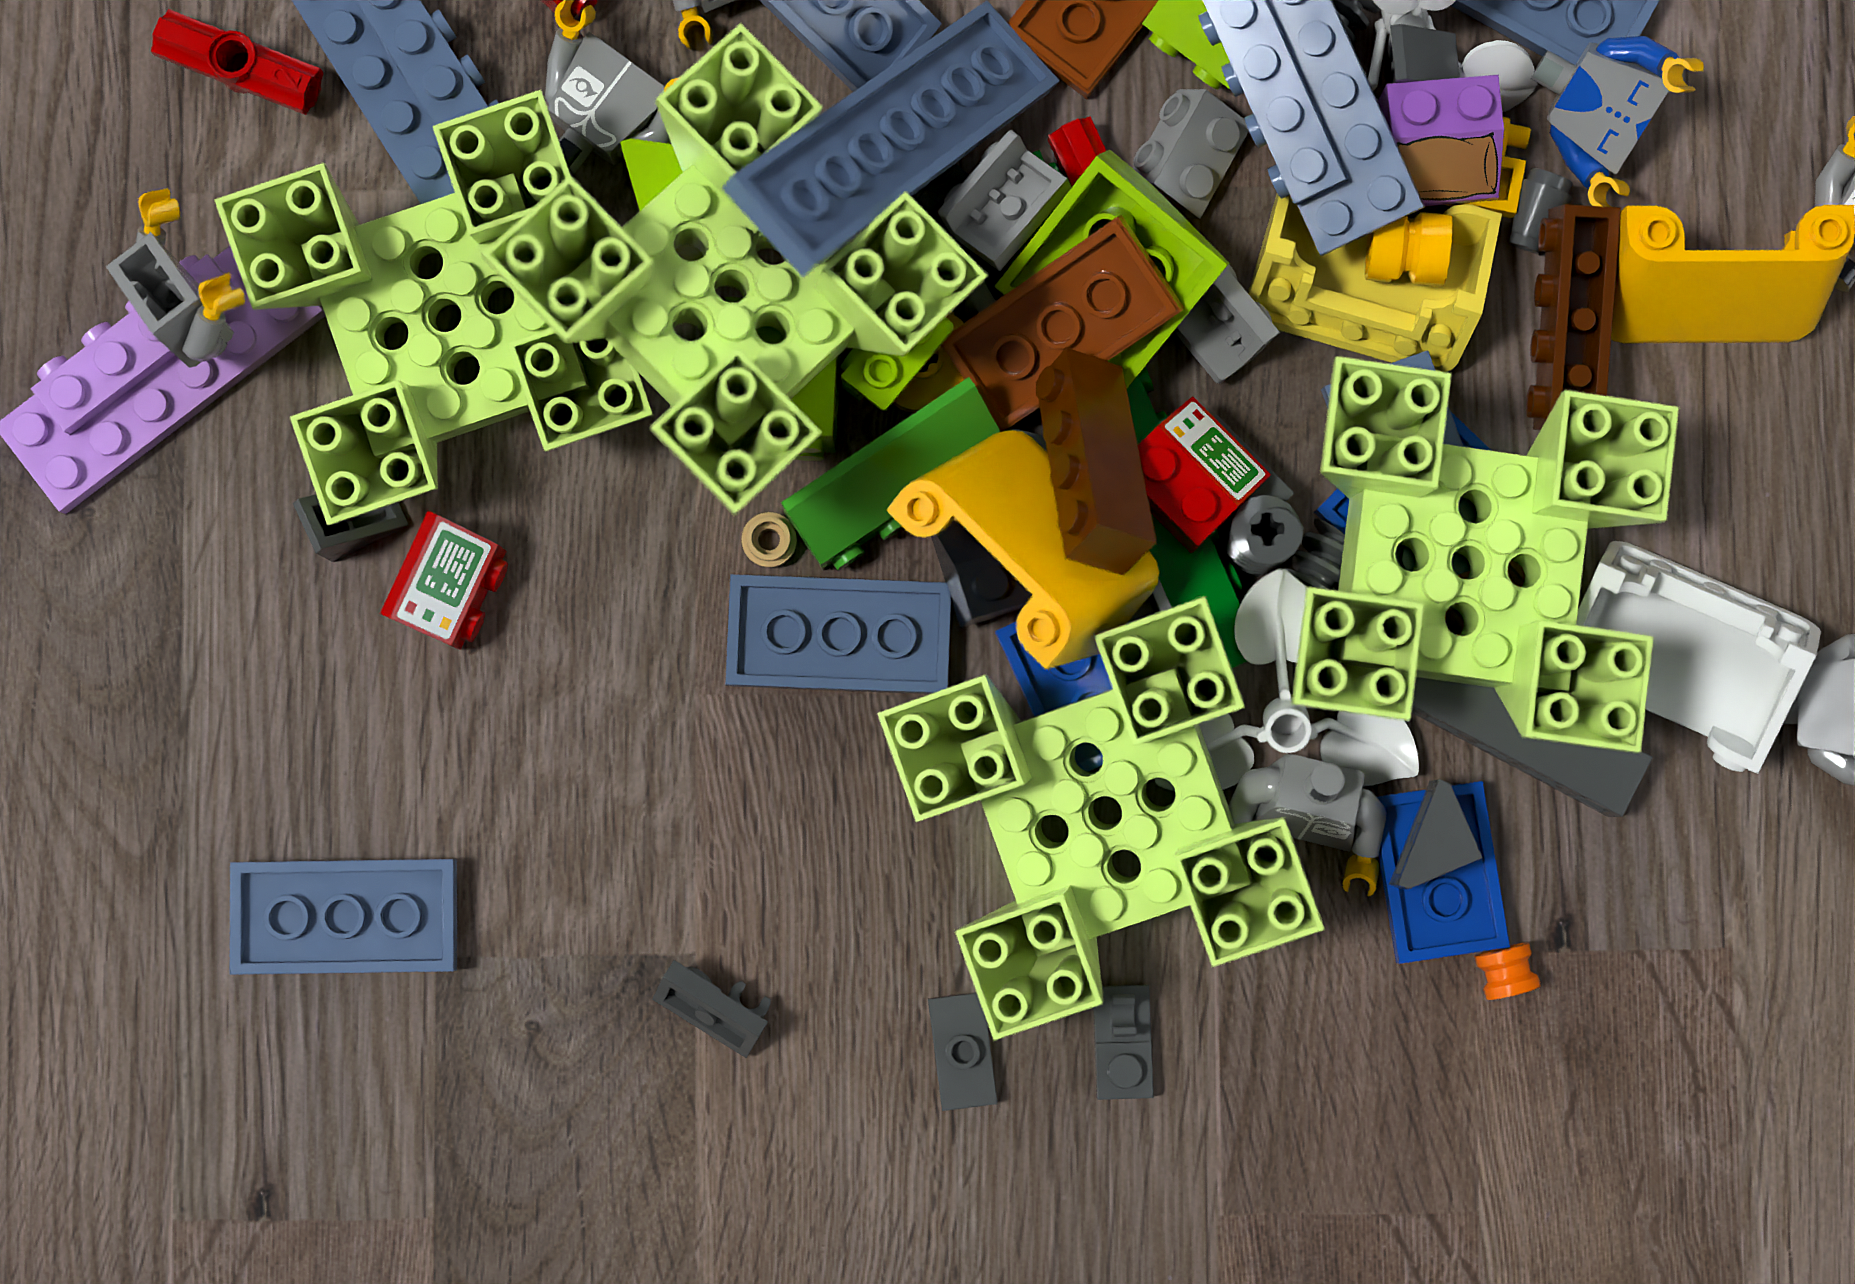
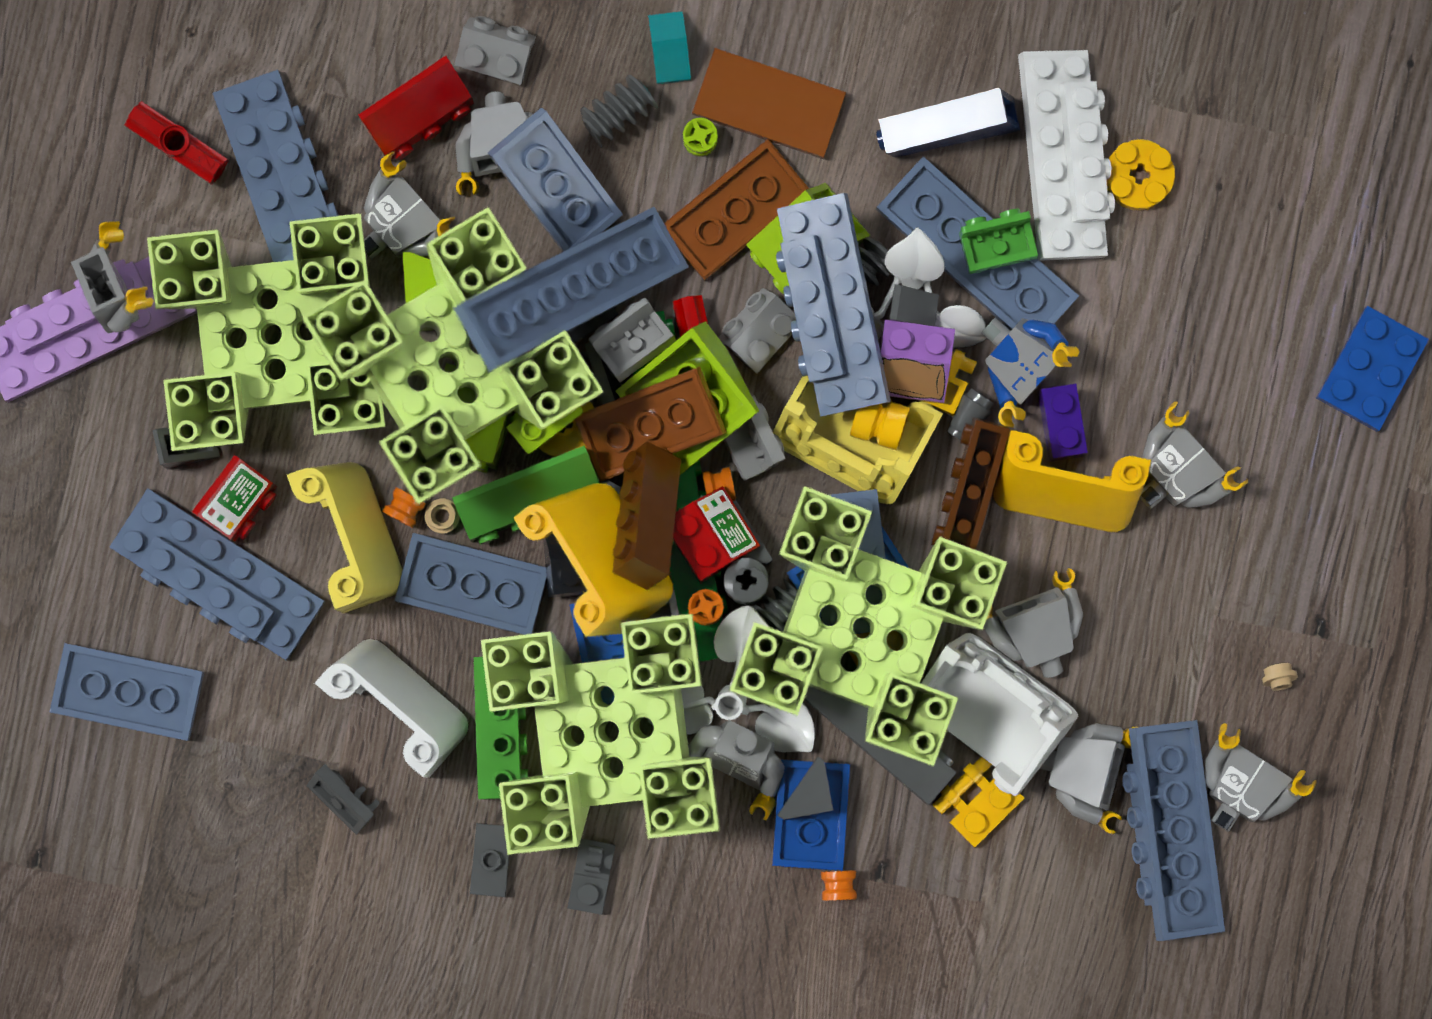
camera: 10 degrees right, 0 degrees up
(443, 707) = (216, 575): none -> sand blue plate
(681, 636) = (362, 530): none -> light yellow windscreen
(708, 539) = (403, 507): none -> orange wheel
(775, 824) = (433, 718): none -> white windscreen
(932, 863) = (497, 740): none -> bright green brick
(1173, 395) = (717, 480): none -> orange wheel
(1218, 581) = (704, 602): none -> orange wheel
(1682, 176) = (1062, 422): none -> dark purple brick
(1701, 805) = (984, 810): none -> yellow plate
(1727, 505) = (1039, 626): none -> light grey torso

